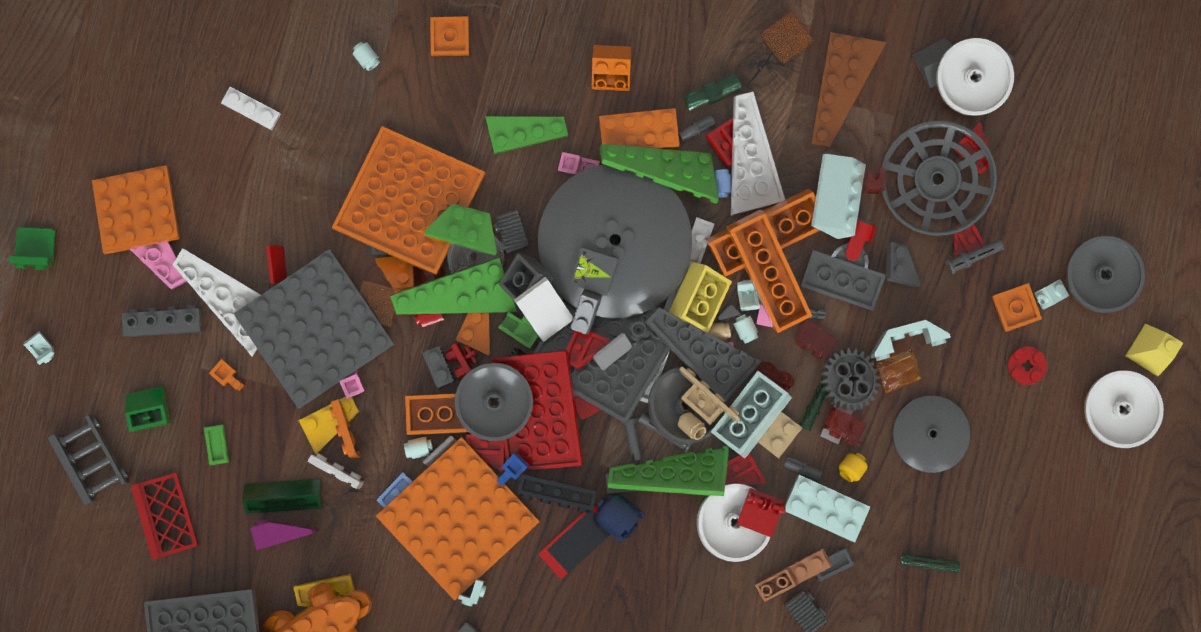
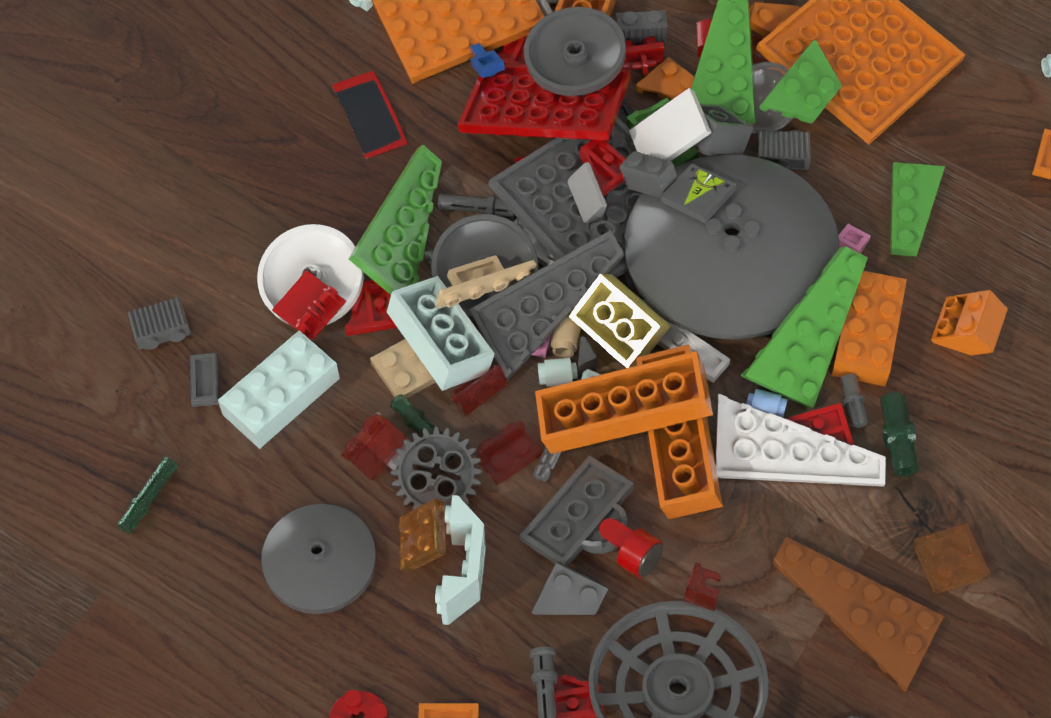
camera: 105 degrees right, 25 degrees down
(558, 492) = (436, 100): black brick -> none
(618, 516) = (376, 152): dark blue cylinder -> none
(692, 426) = (453, 255): tan brick -> none
(793, 575) = (212, 322): nougat slope -> none
(803, 468) = (343, 383): dark grey axle -> none
(838, 195) = (699, 530): light aqua slope -> none
(853, 467) = (318, 440): yellow head -> none

